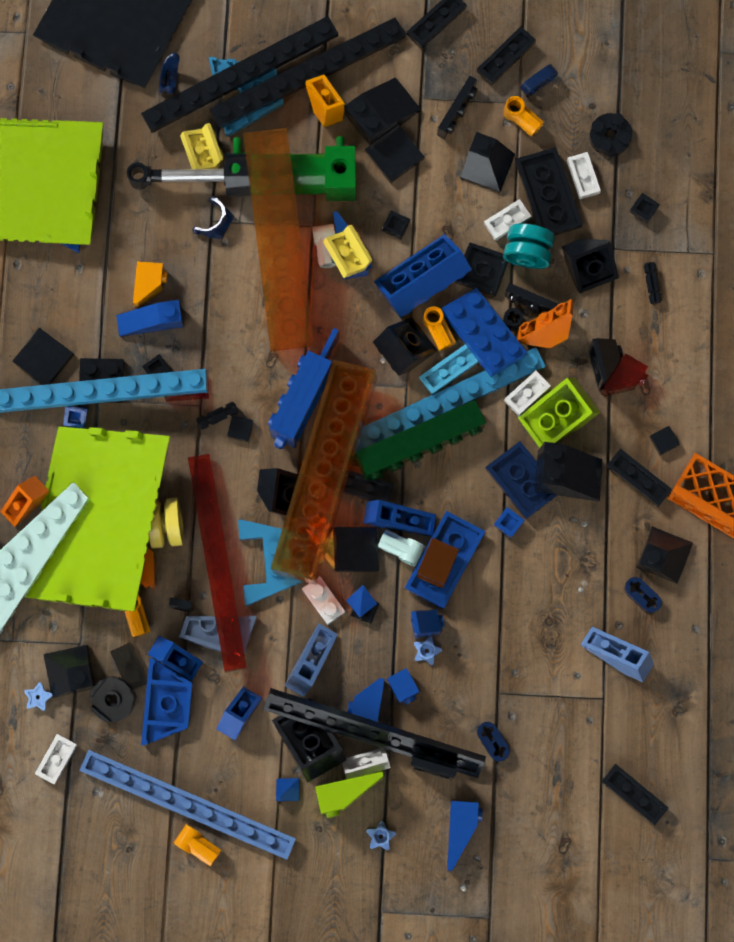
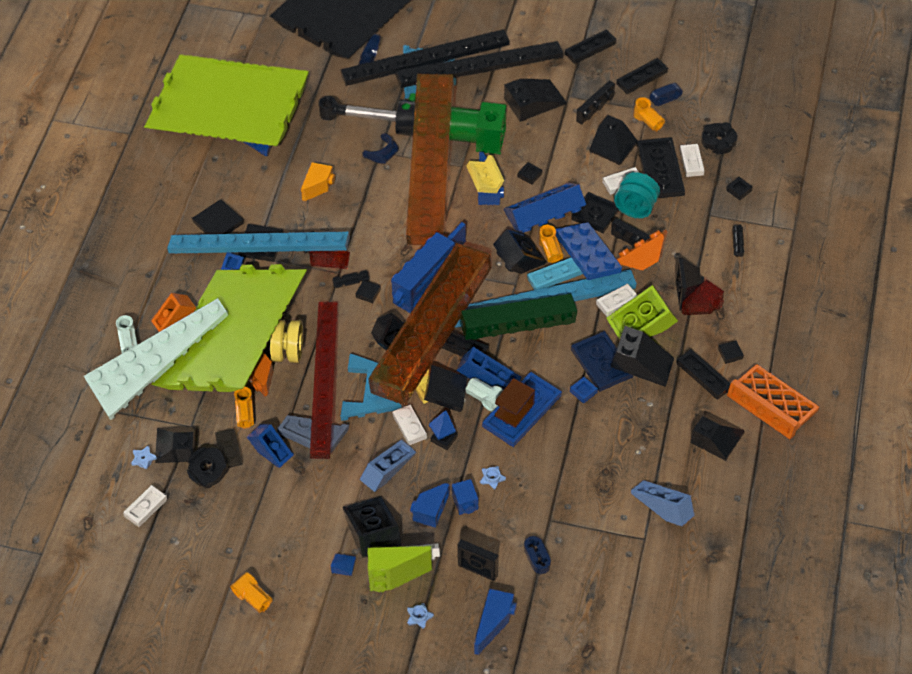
camera: 10 degrees right, 25 degrees down
(151, 318) = (314, 205): blue slope -> none
(165, 703) = (252, 478): blue wing -> none
(182, 605) = (285, 406): black tile -> none
(187, 804) = (253, 560): medium blue plate -> none
(202, 148) = (383, 98): light yellow bracket -> none
(238, 713) = (313, 495): blue slope -> none
(319, 234) = (467, 185): piece -> none
(325, 101) = (489, 83): light orange slope -> none
(373, 732) = (425, 519): black plate -> none
(394, 154) = (538, 127): black tile -> none
(426, 623) = (495, 449): blue slope -> none
(517, 313) = (615, 243): black bush -> none
(590, 263) = (687, 218): black slope -> none
(634, 794) = (660, 616): black plate -> none
(638, 599) = (694, 461): dark blue beam -> none

